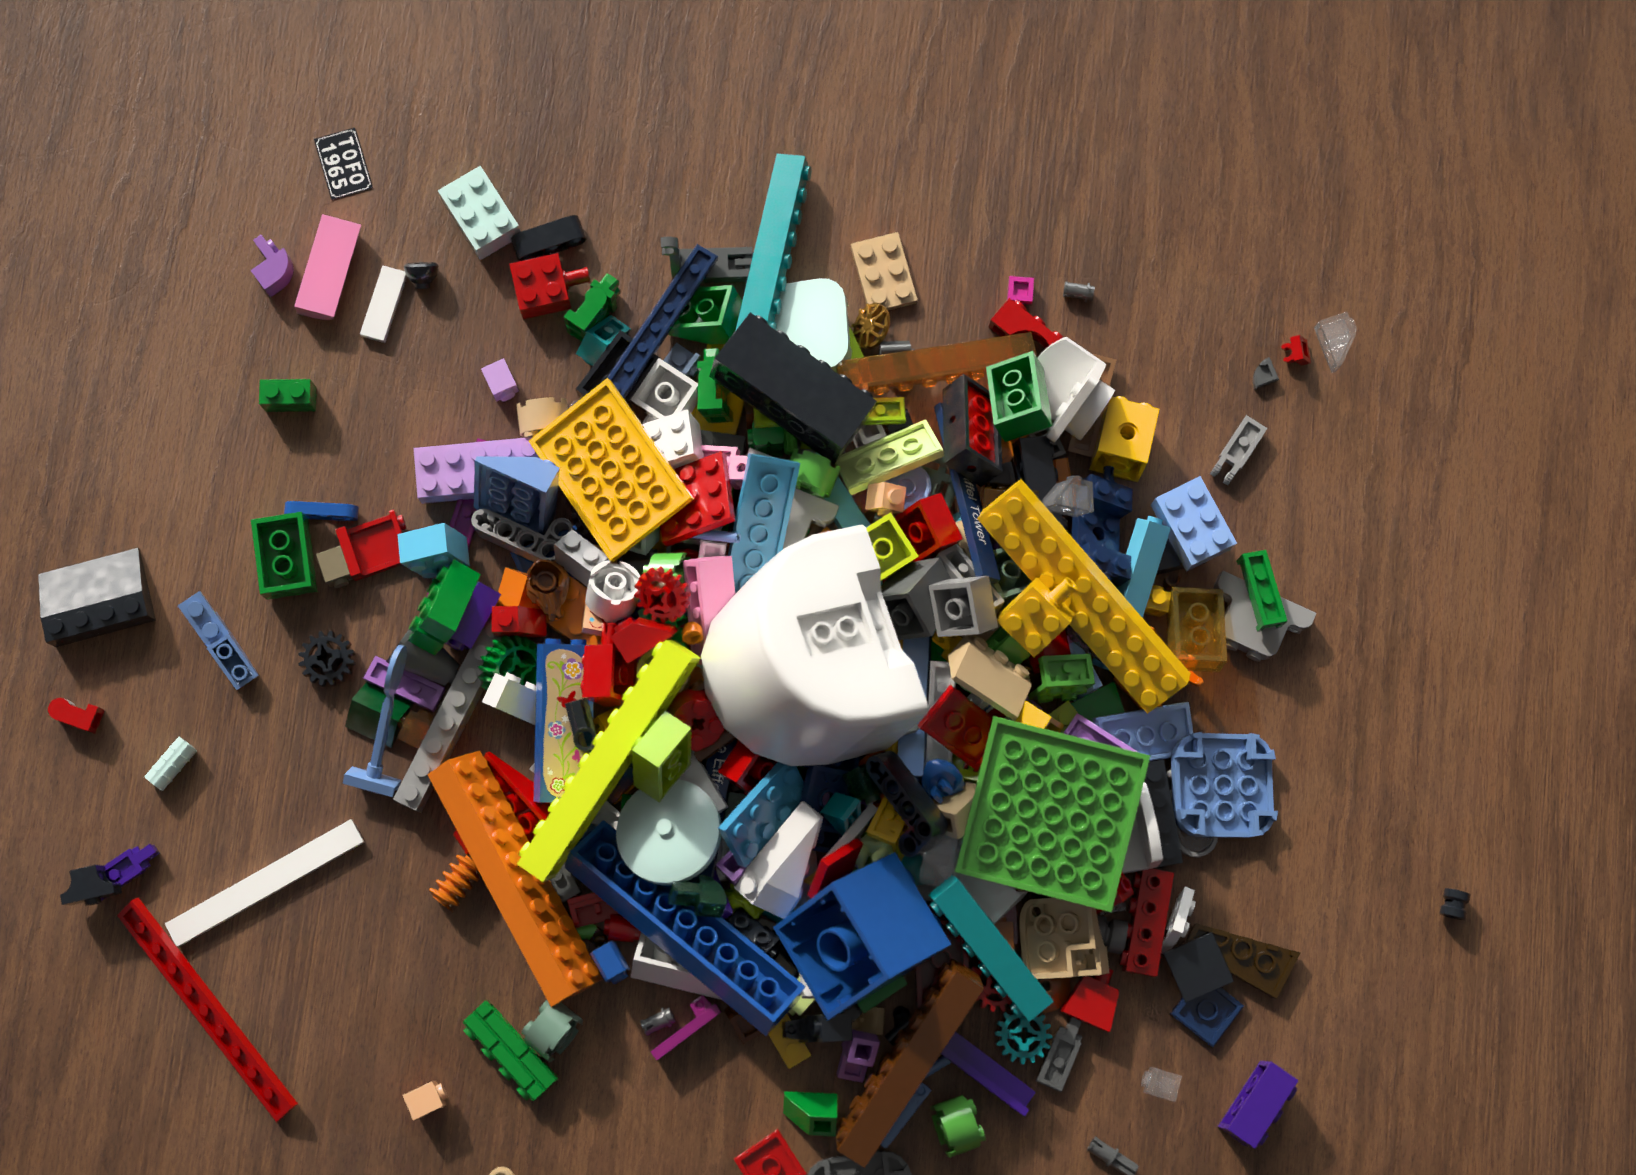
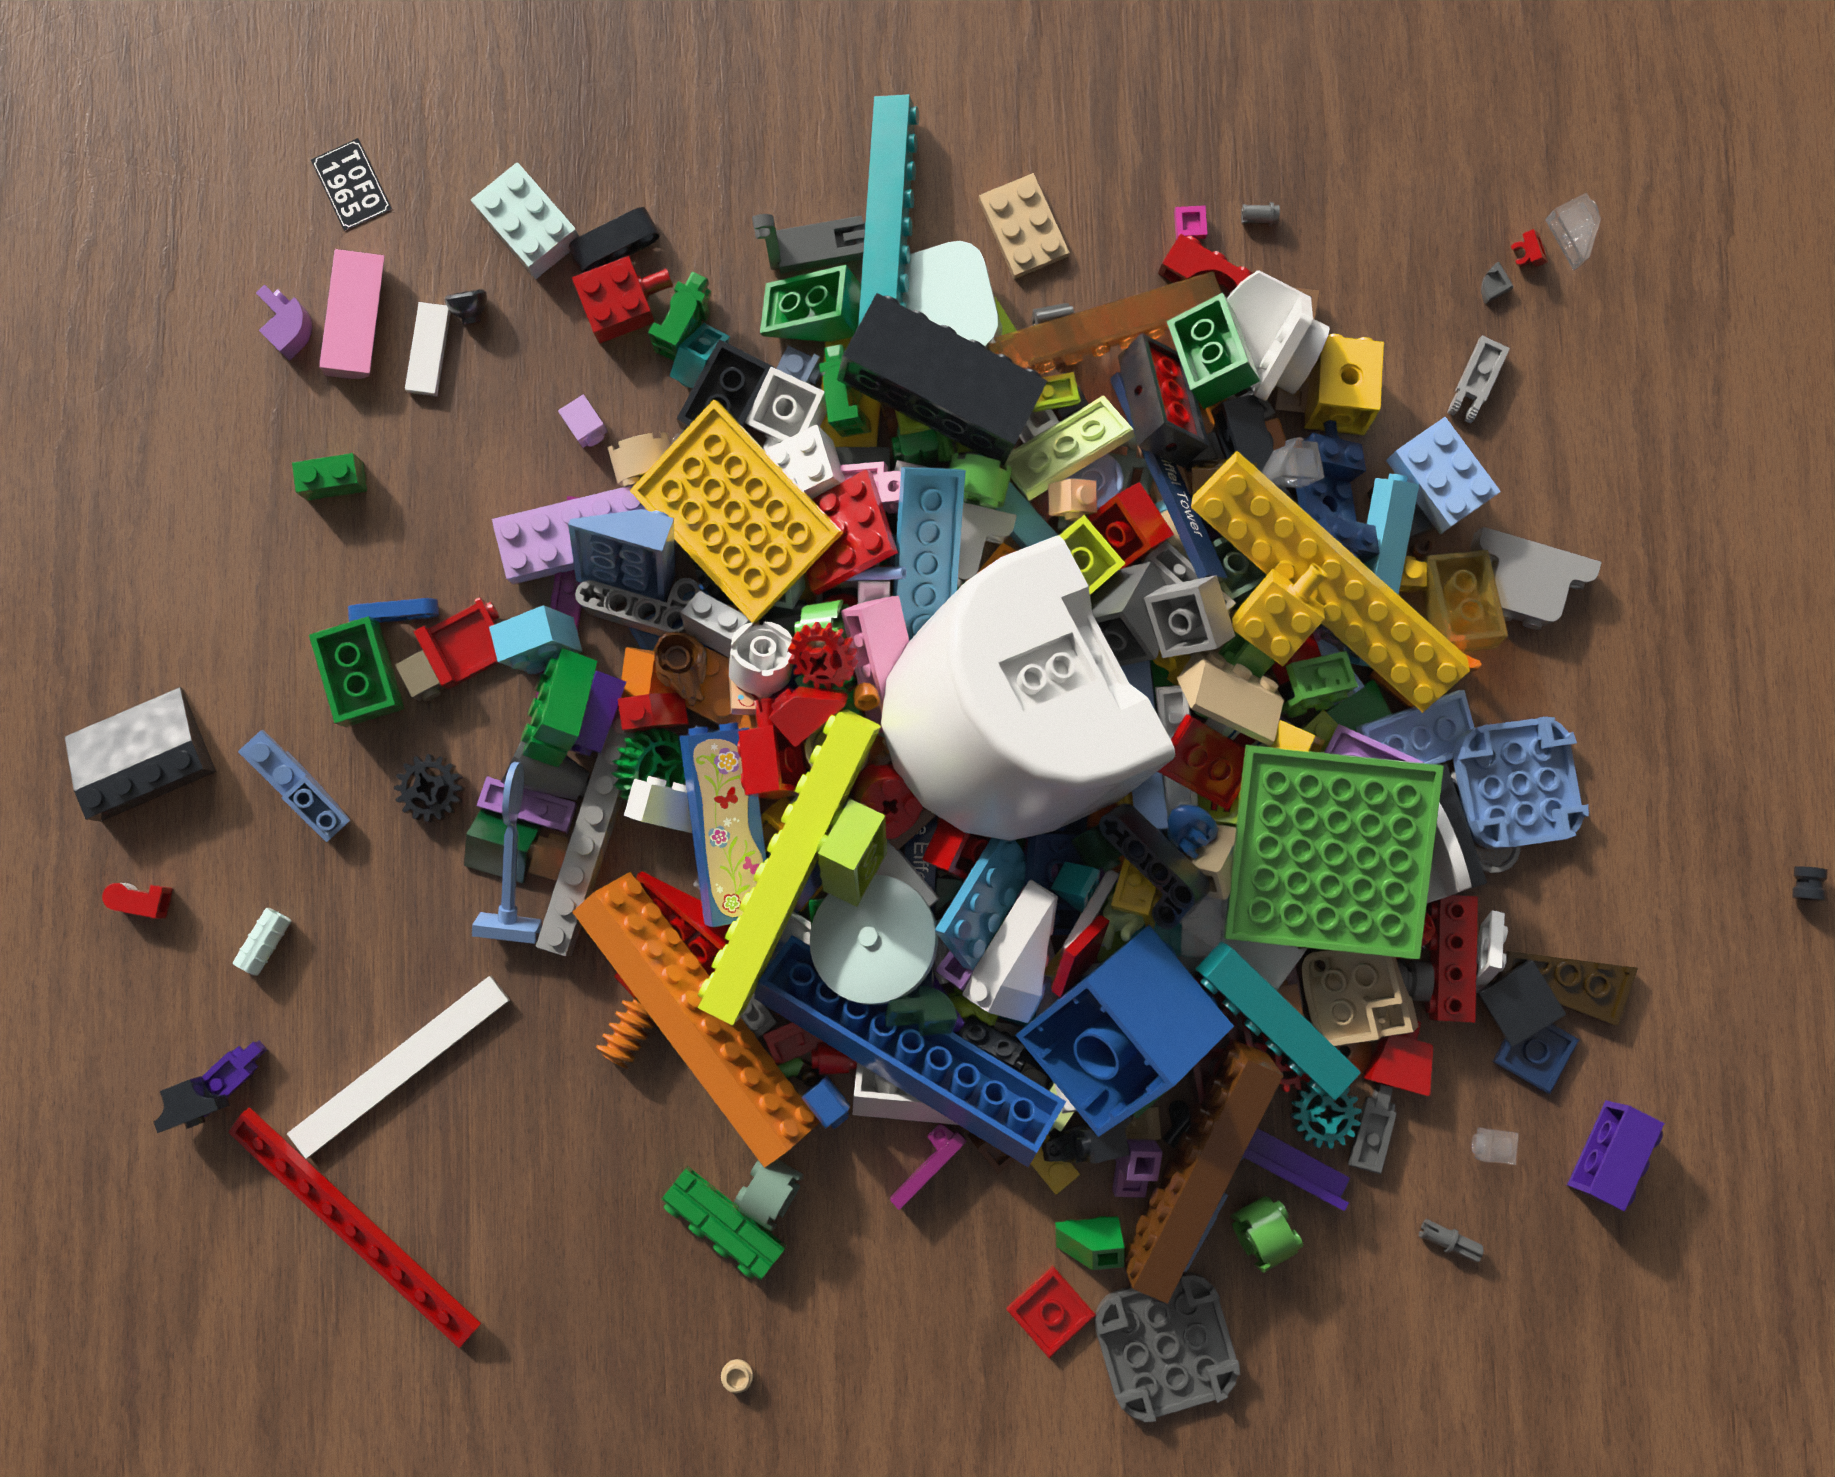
camera: 10 degrees left, 5 degrees up
(425, 1099) = (632, 1296): light nougat brick -> none
(581, 721) = (748, 823): black piece -> none
(658, 1021) = (893, 1161): dark grey pin -> none
(662, 319) = (767, 318): dark blue tile -> none
(871, 325) = (1019, 290): pearl gold wheel -> none
(1262, 589) = (1535, 543): green container -> none

